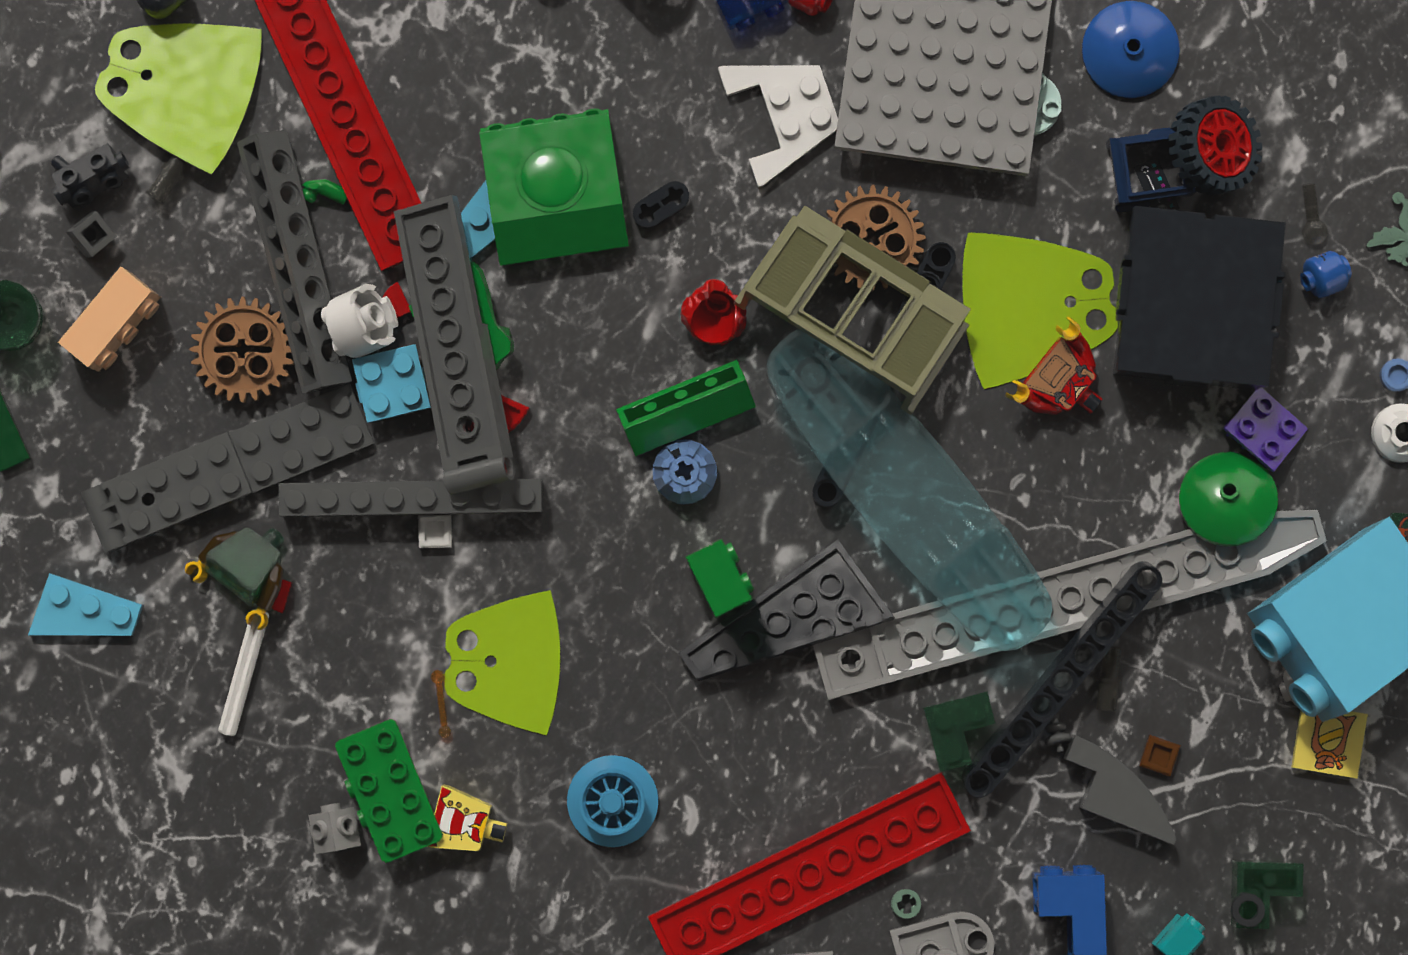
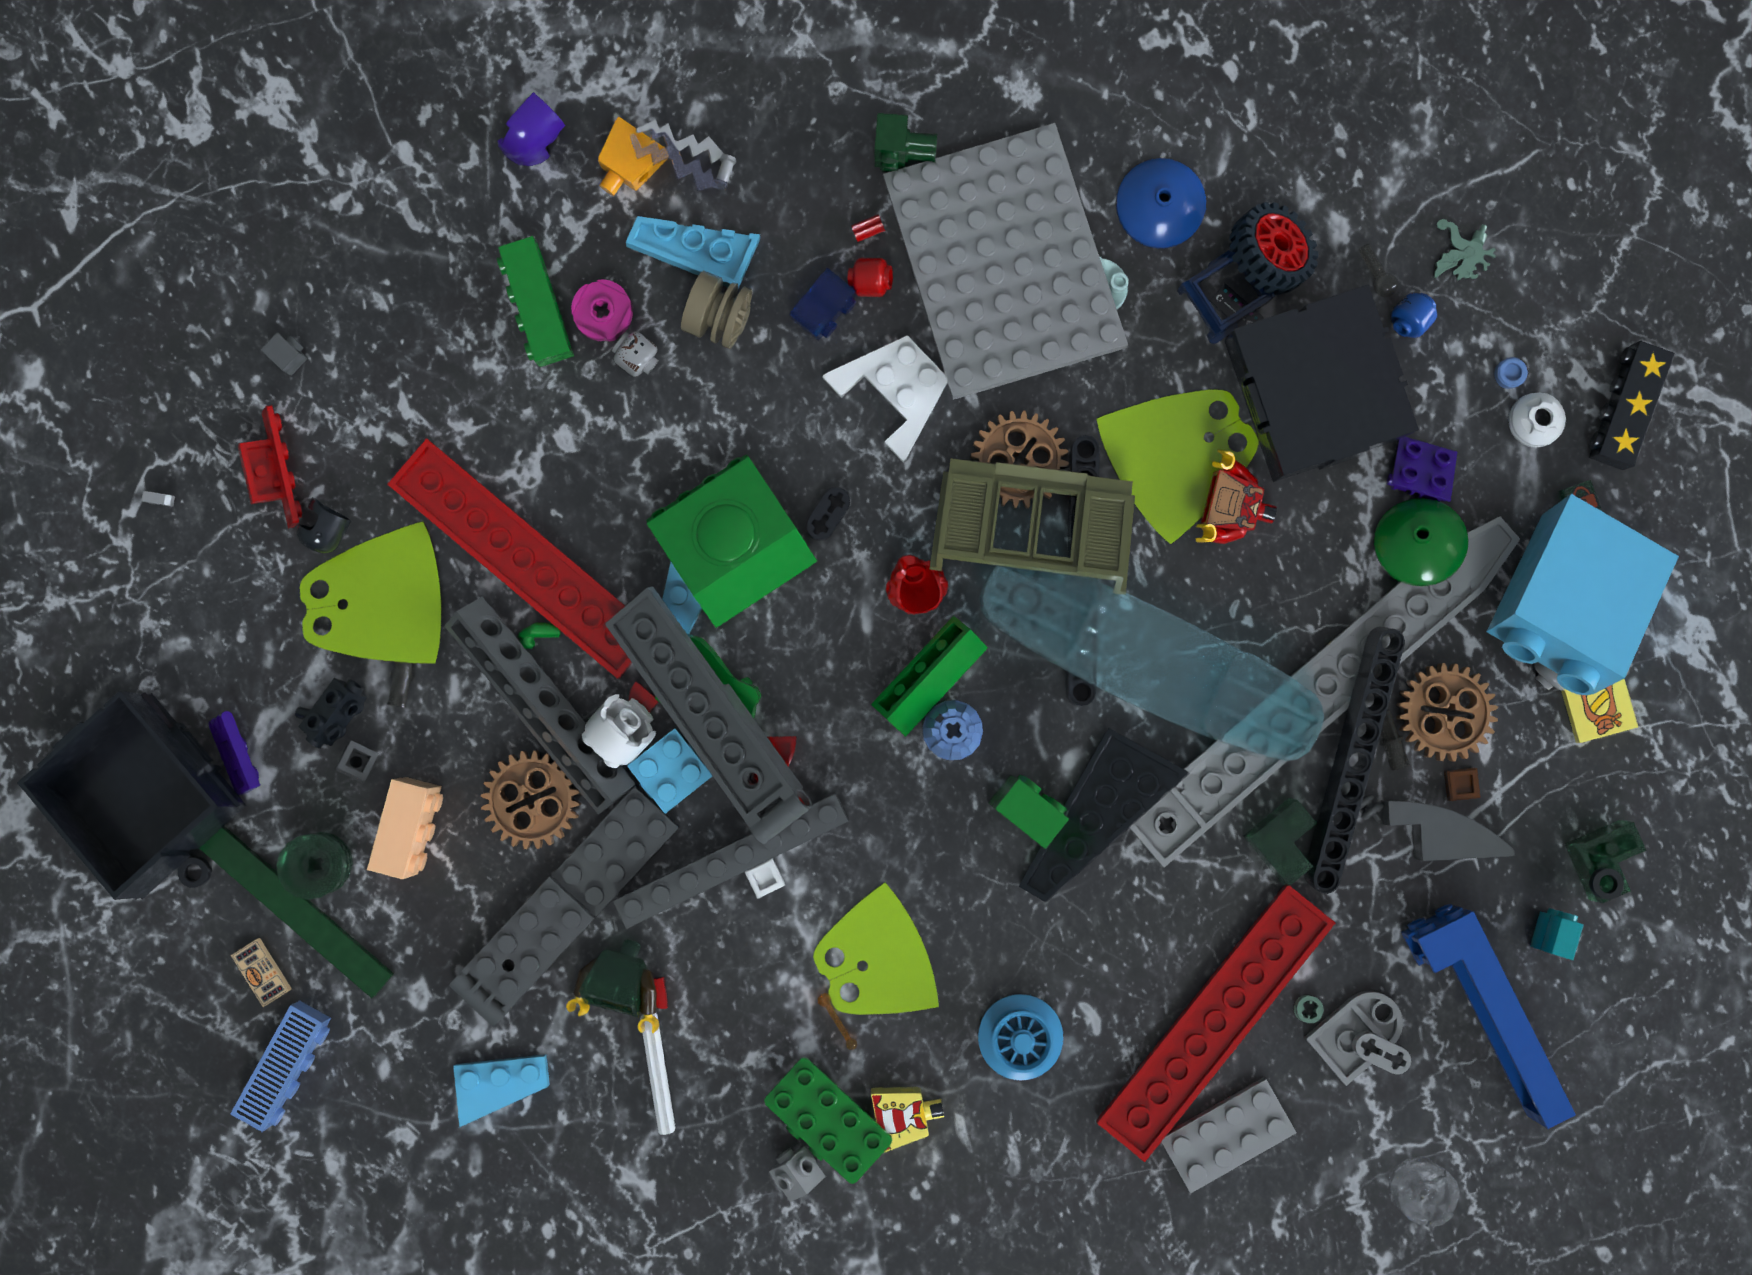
camera: 25 degrees left, 0 degrees up
(1160, 702) = (1443, 738): none -> medium nougat gear

